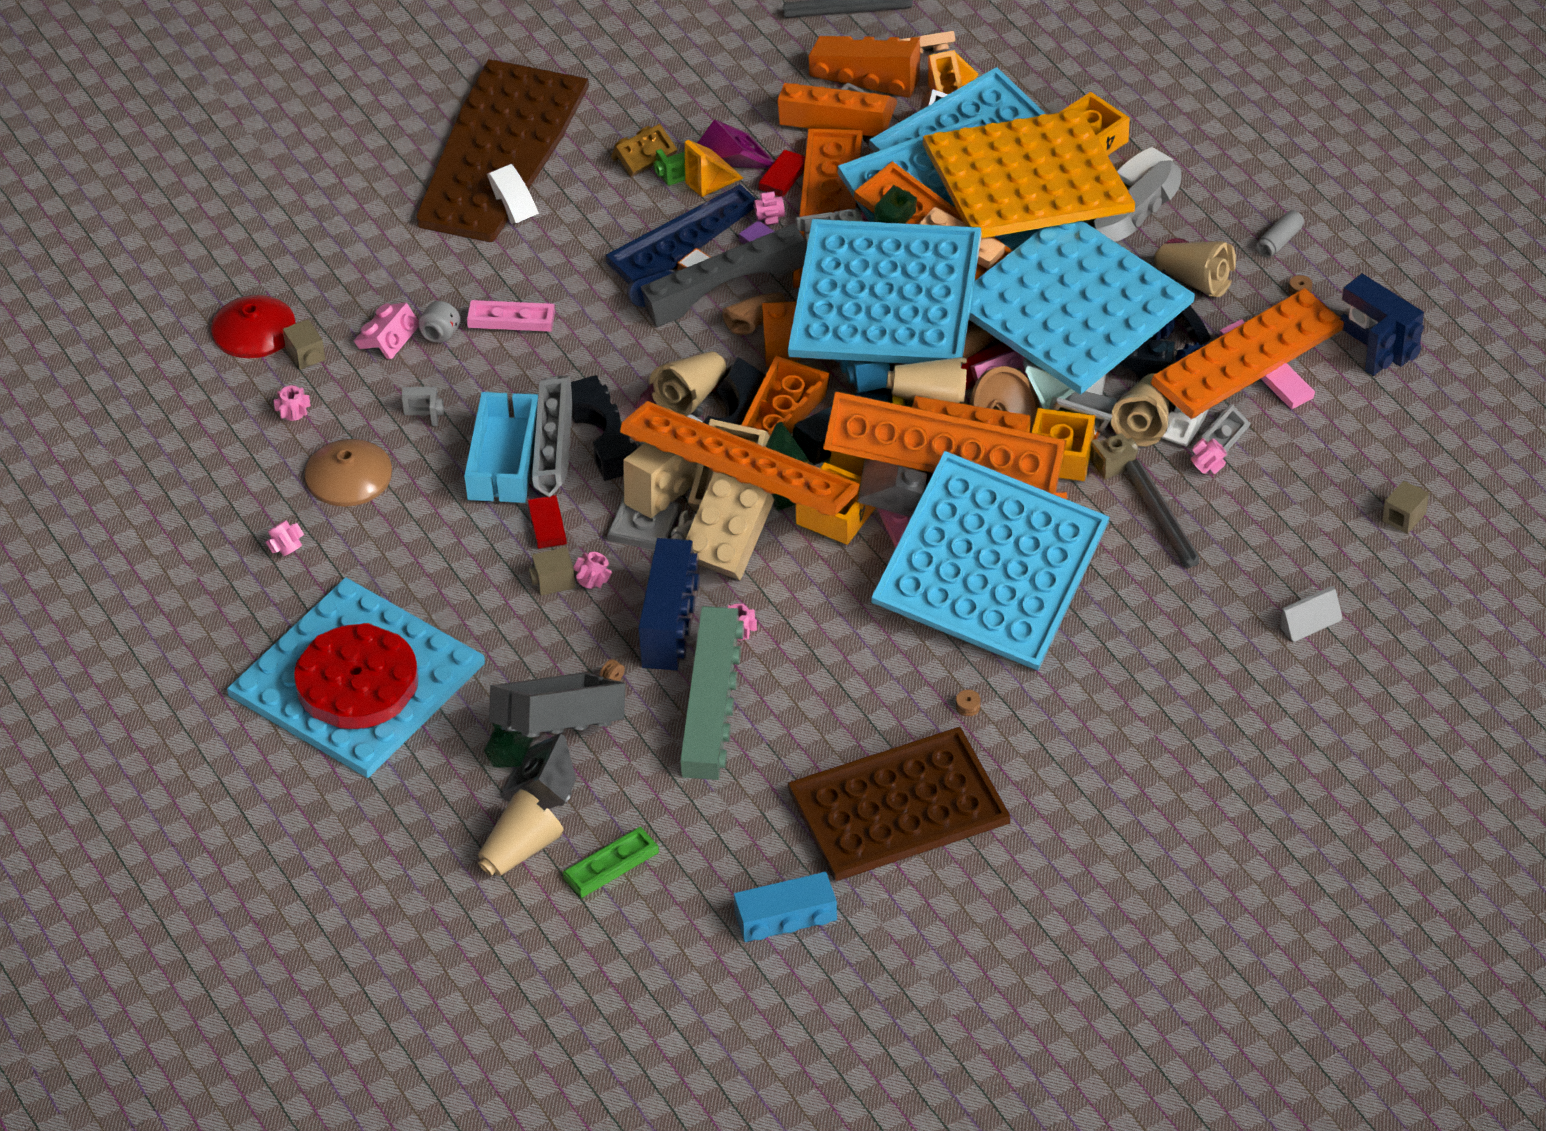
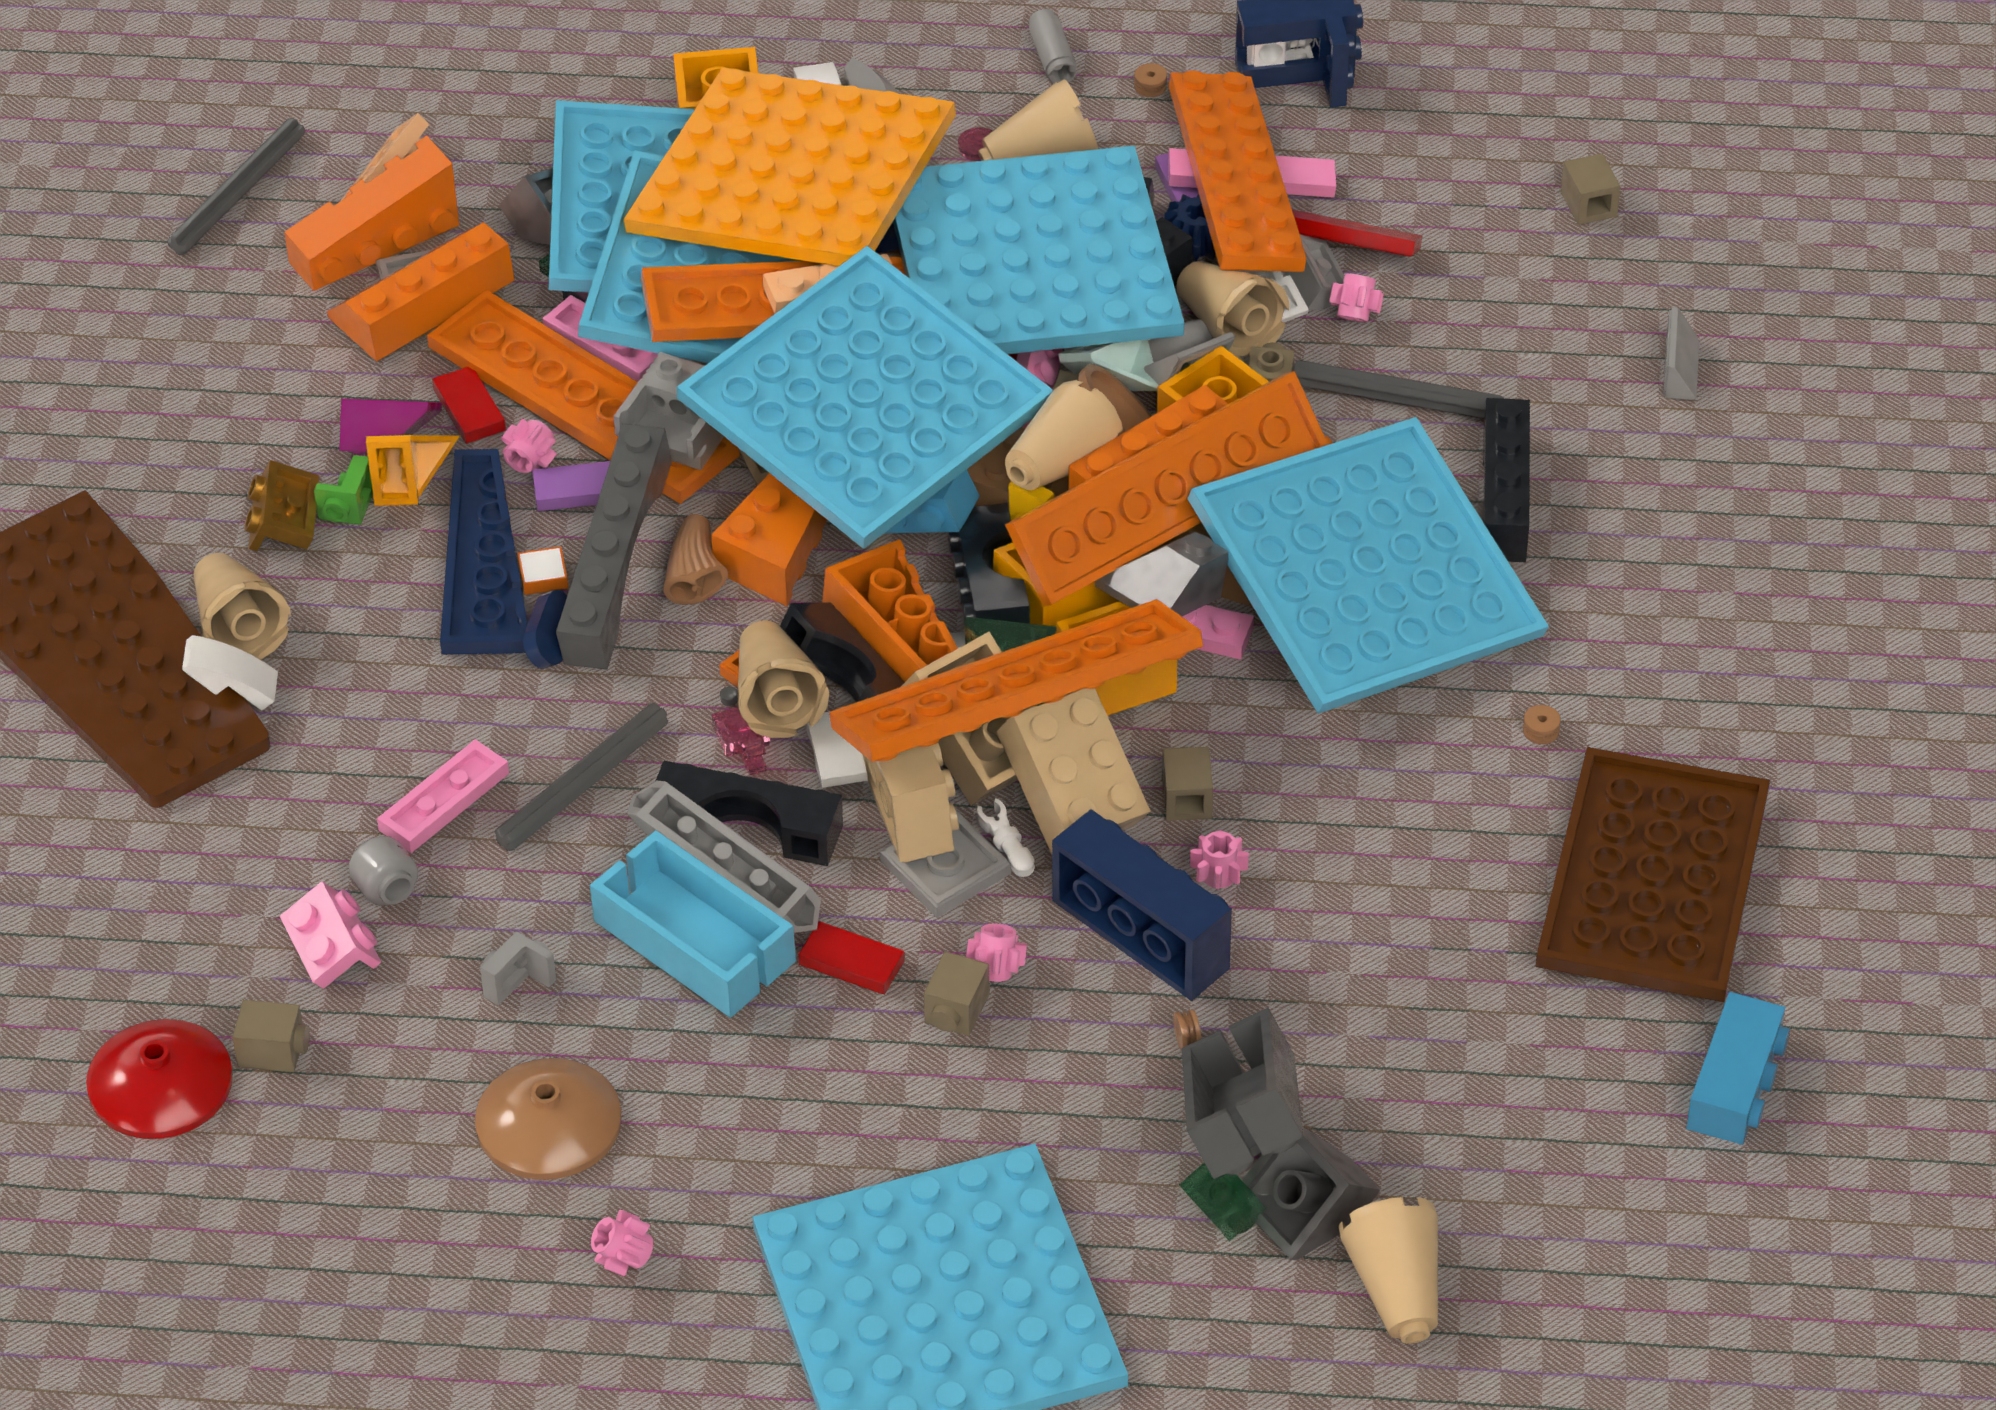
camera: 55 degrees left, 0 degrees up
(292, 403) = (368, 1106): bright pink gear -> none
(356, 676) = (973, 1332): red piece -> none
(554, 171) = (239, 606): none -> tan cone
(573, 357) = (581, 777): none -> dark grey axle
(610, 862) = (1504, 1205): bright green tile -> none
(710, 693) = (1330, 945): sand green brick -> none
(780, 581) = (1187, 783): none -> dark tan brick
(895, 206) = (737, 306): clear green brick -> none
(949, 72) = (481, 170): light orange slope -> none
(1102, 601) = (1507, 475): none -> black arch
(1262, 427) = (1357, 234): none -> red tile

